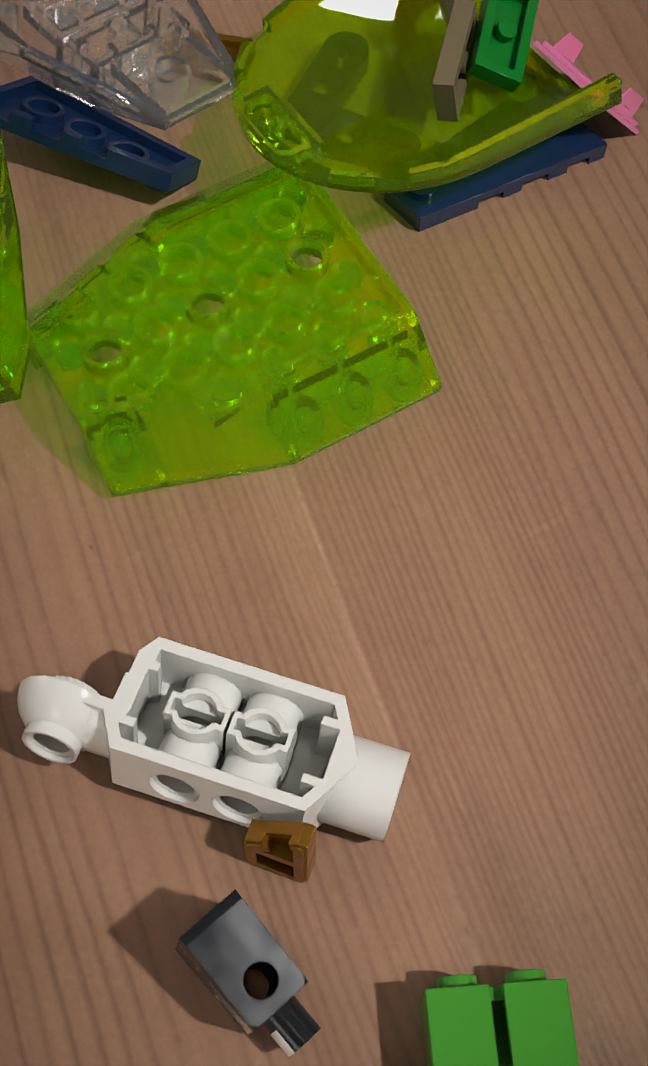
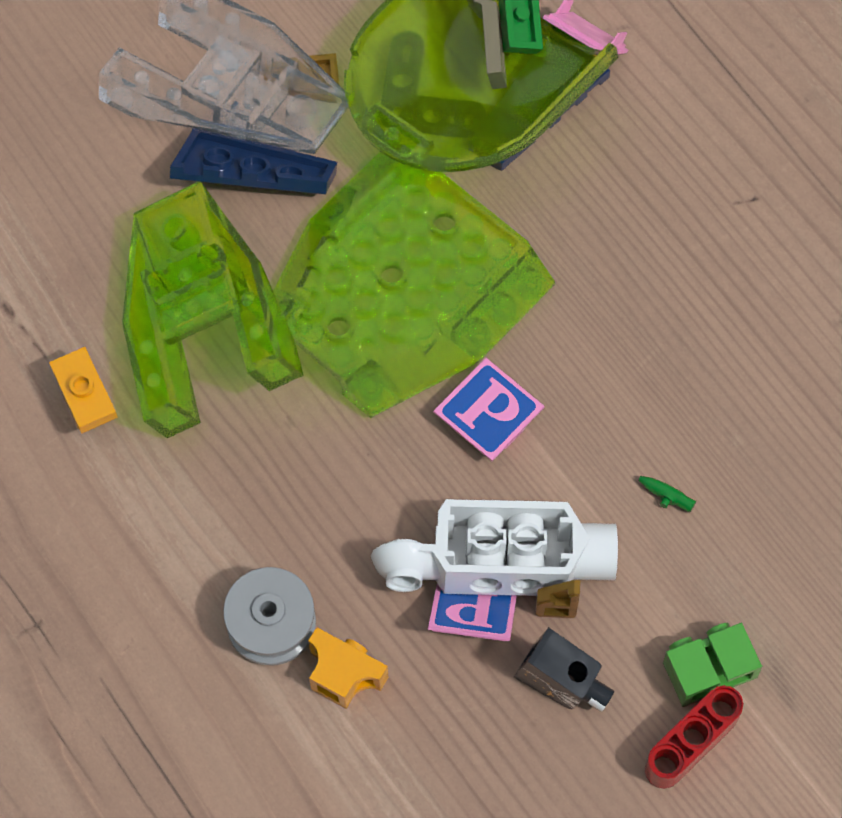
camera: 15 degrees left, 5 degrees up
(139, 831) = (473, 615): none -> piece
(282, 531) = (489, 409): none -> piece
(512, 733) = (667, 494): none -> green helmet

